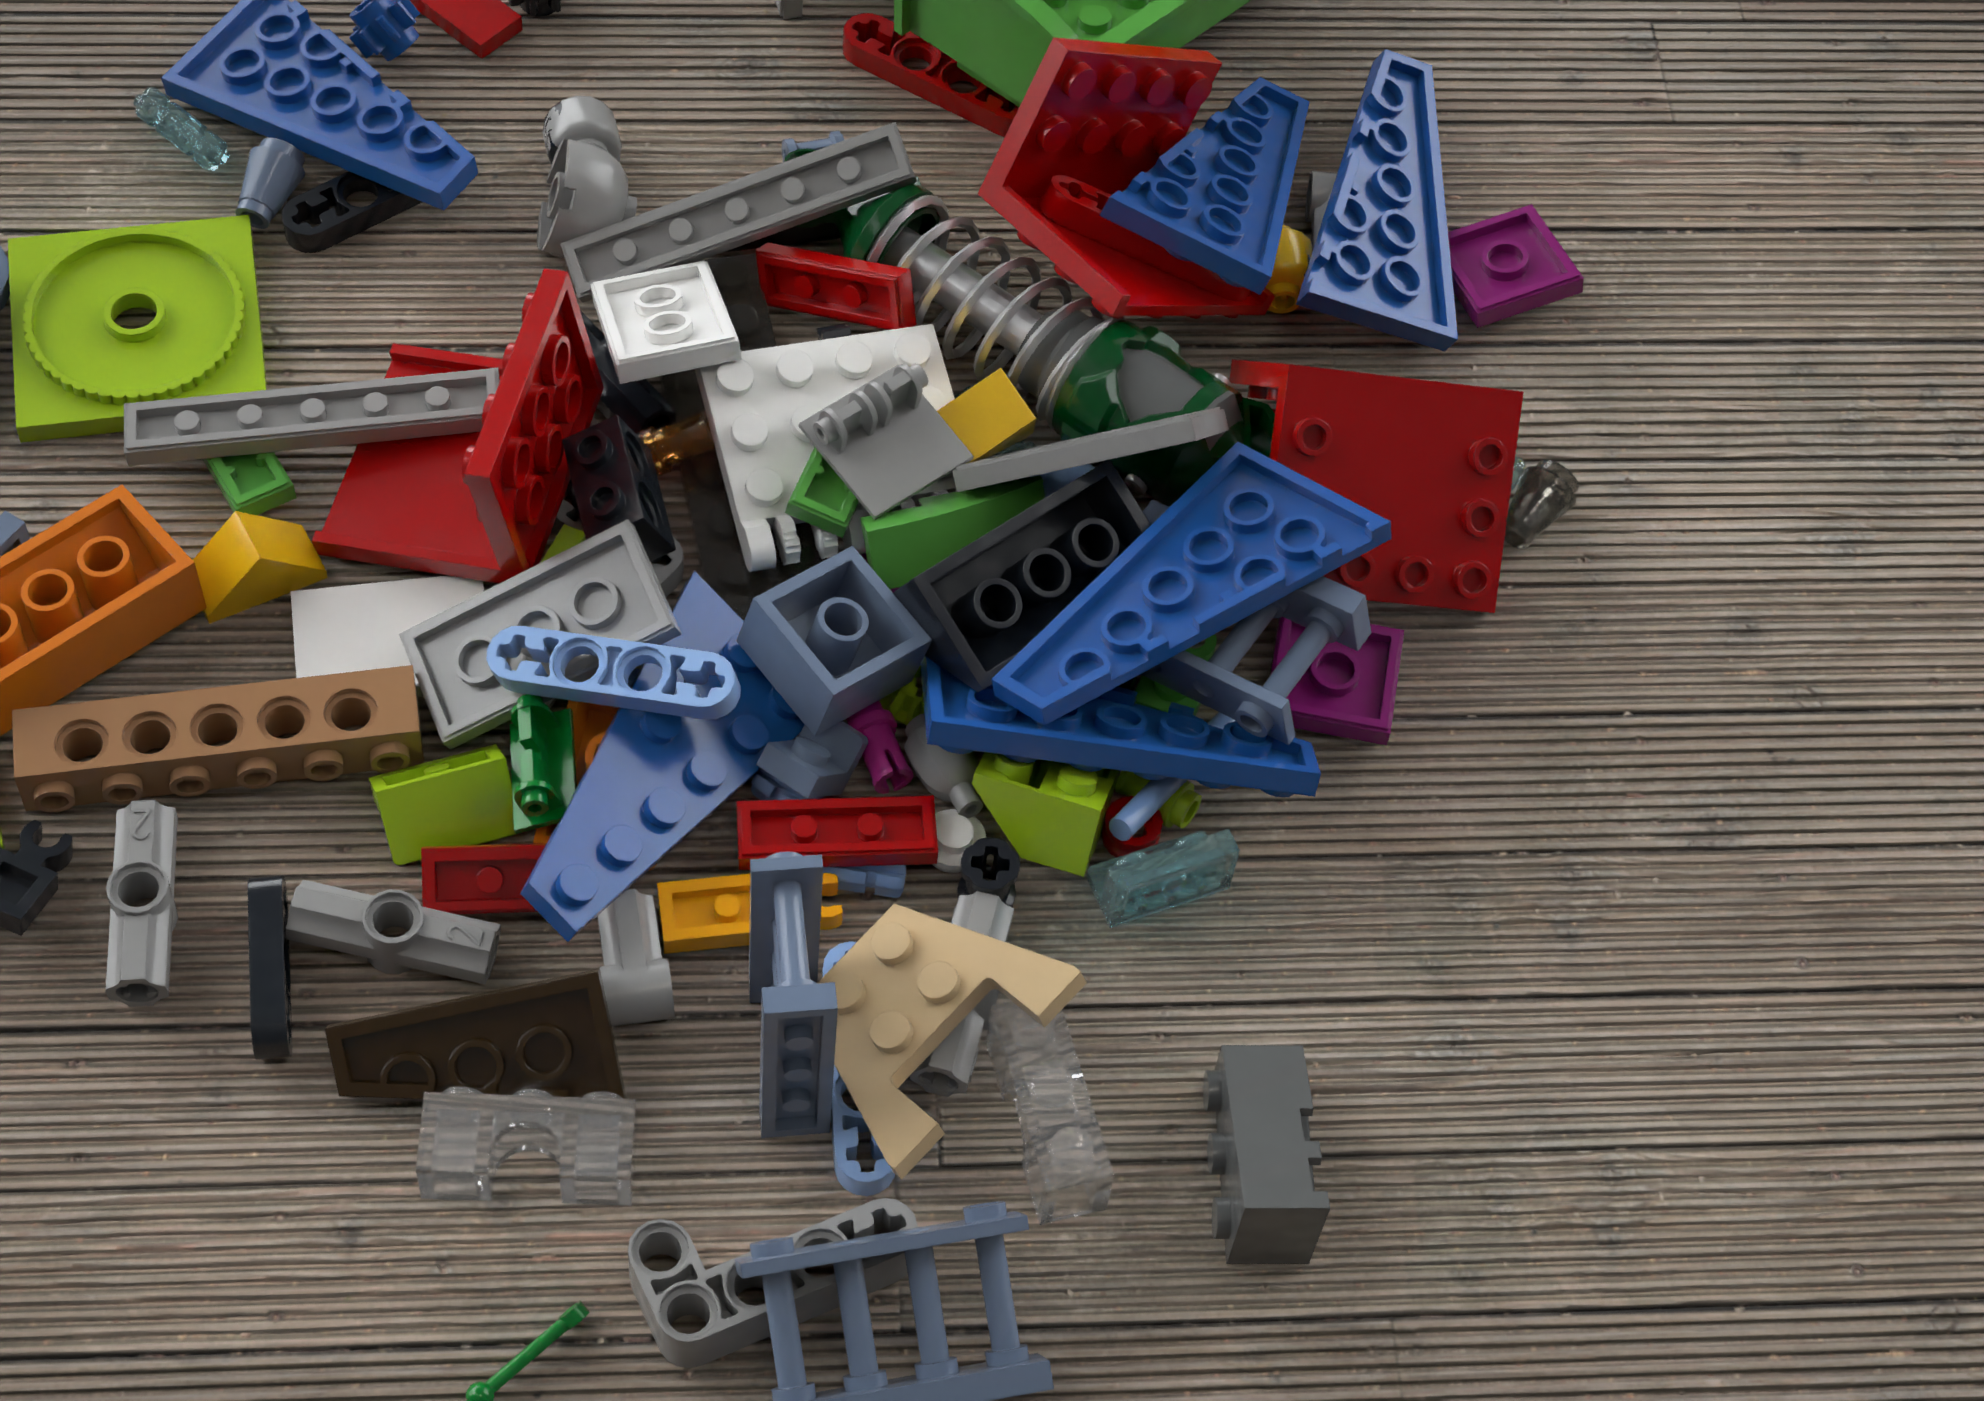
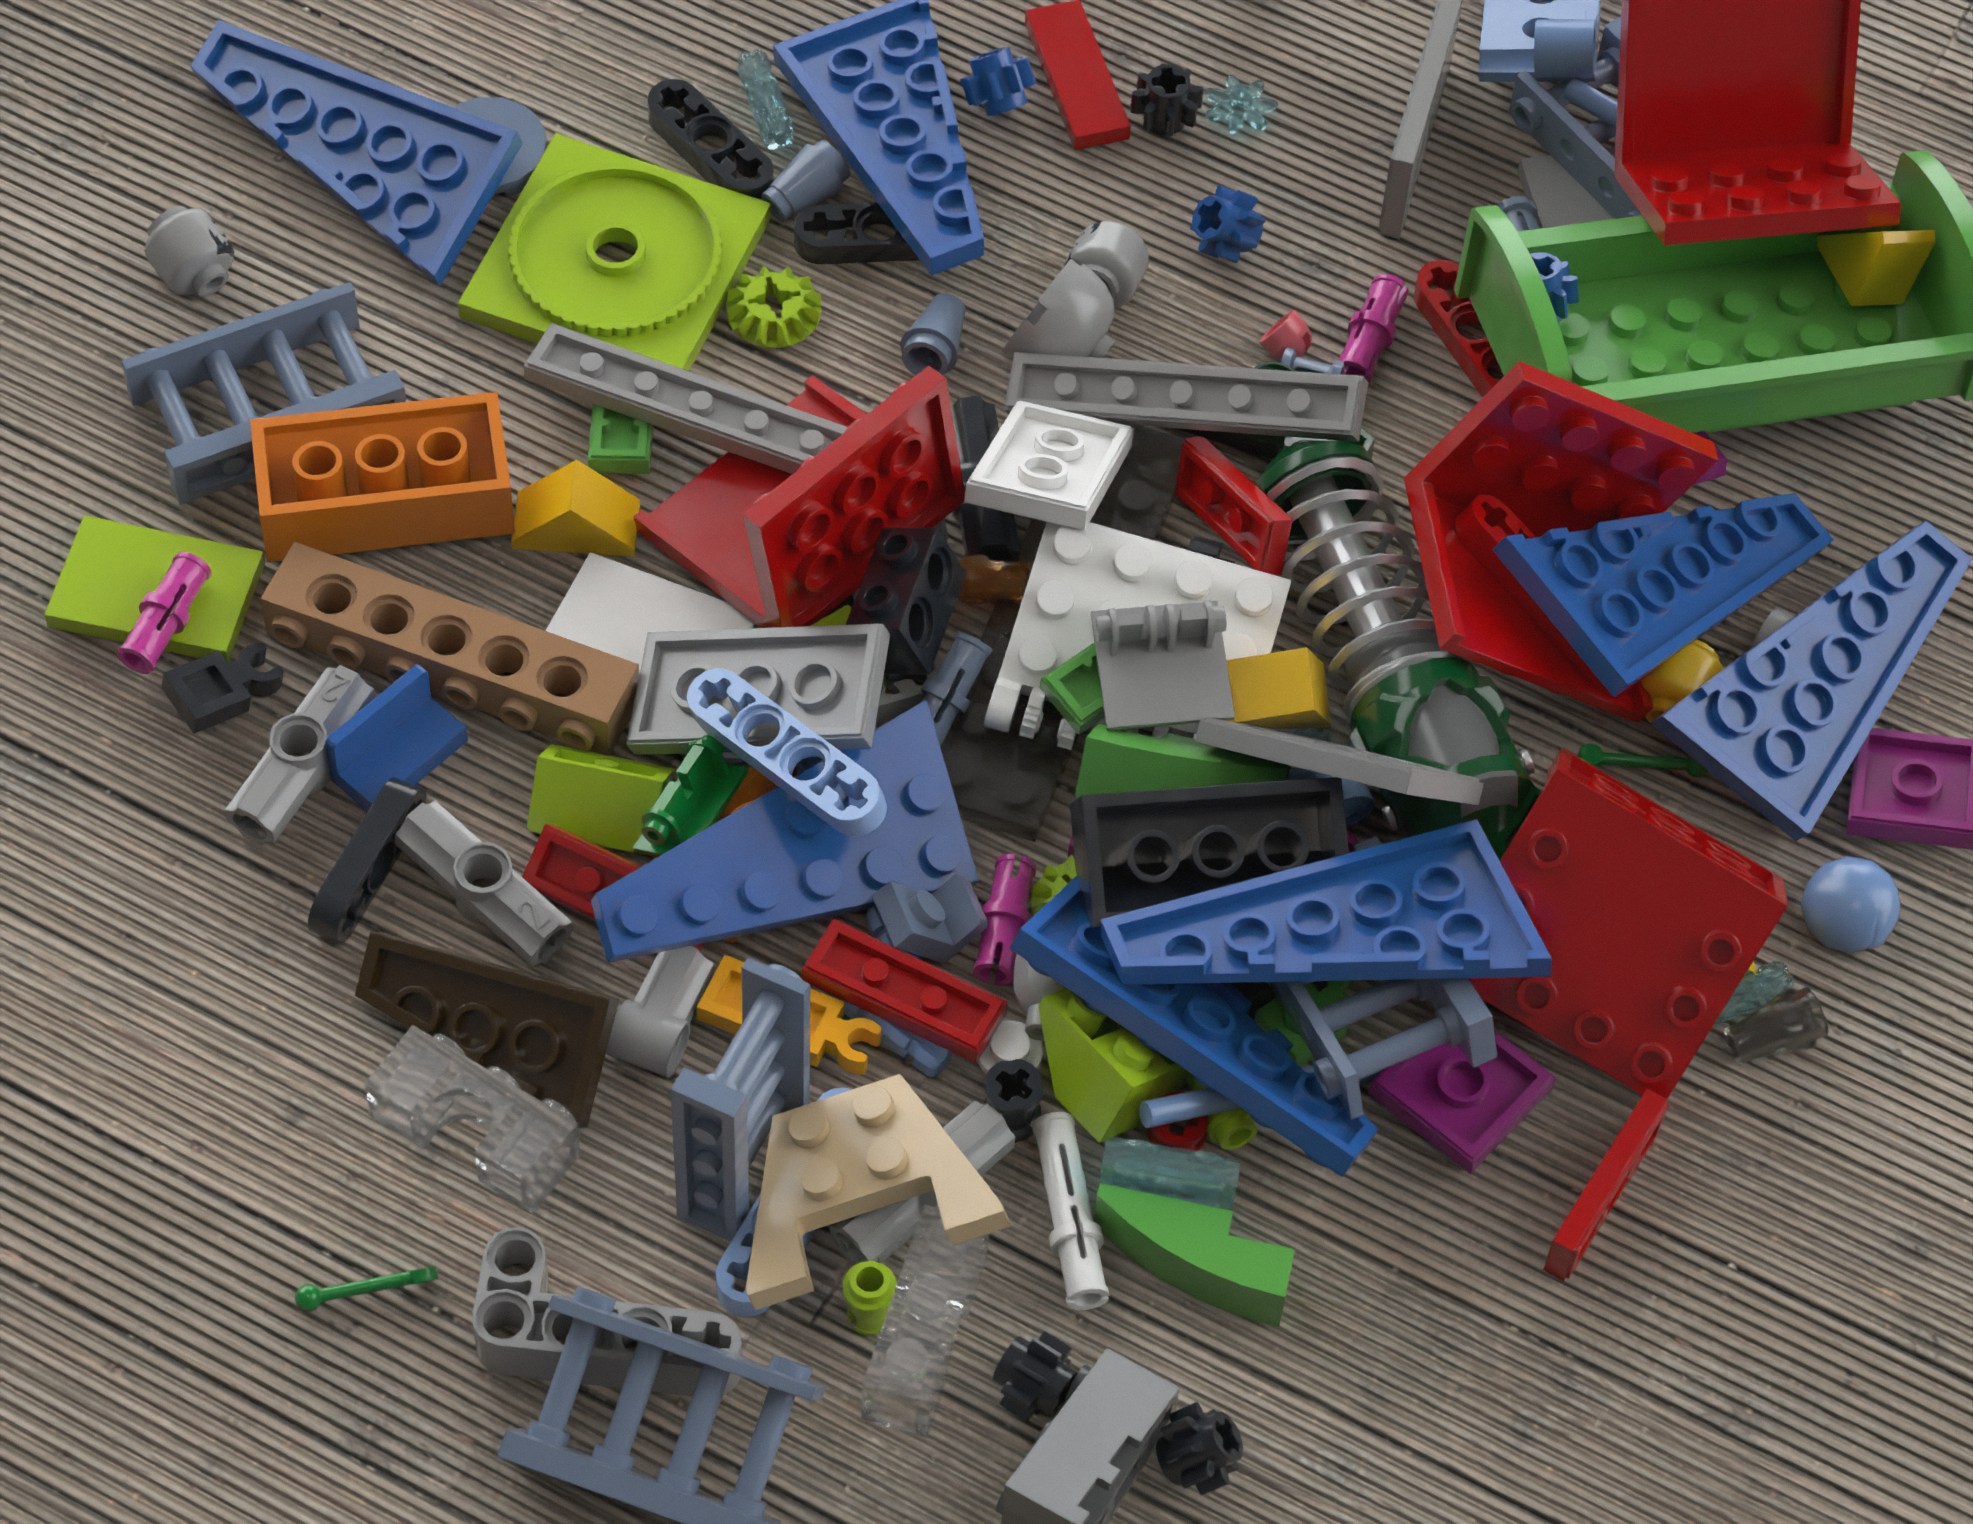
camera: 35 degrees right, 0 degrees up
(139, 169) = (705, 120): none -> black beam
(222, 848) = (394, 735): none -> blue panel
(308, 322) = (755, 320): none -> lime gear
(474, 266) = (934, 336): none -> sand blue cone
(646, 60) = (1227, 224): none -> blue gear
(699, 541) = (965, 658): none -> sand blue pin
(768, 132) = (1288, 332): none -> coral hinge
(833, 640) = (1000, 819): sand blue brick -> none
(834, 92) = (1373, 326): none -> dark pink pin
(986, 1122) = (868, 1291): none -> lime pin
(1116, 966) = (1075, 1234): none -> white pin
(1171, 1103) = (1035, 1376): none -> black gear
(1226, 925) = (1194, 1252): none -> bright green slope
(1326, 329) = (1596, 757): none -> green hinge
(1346, 1089) = (1199, 1448): none -> black gear
(1502, 698) = (1606, 1186): none -> red tile
(1526, 367) = (1851, 904): none -> medium blue hair

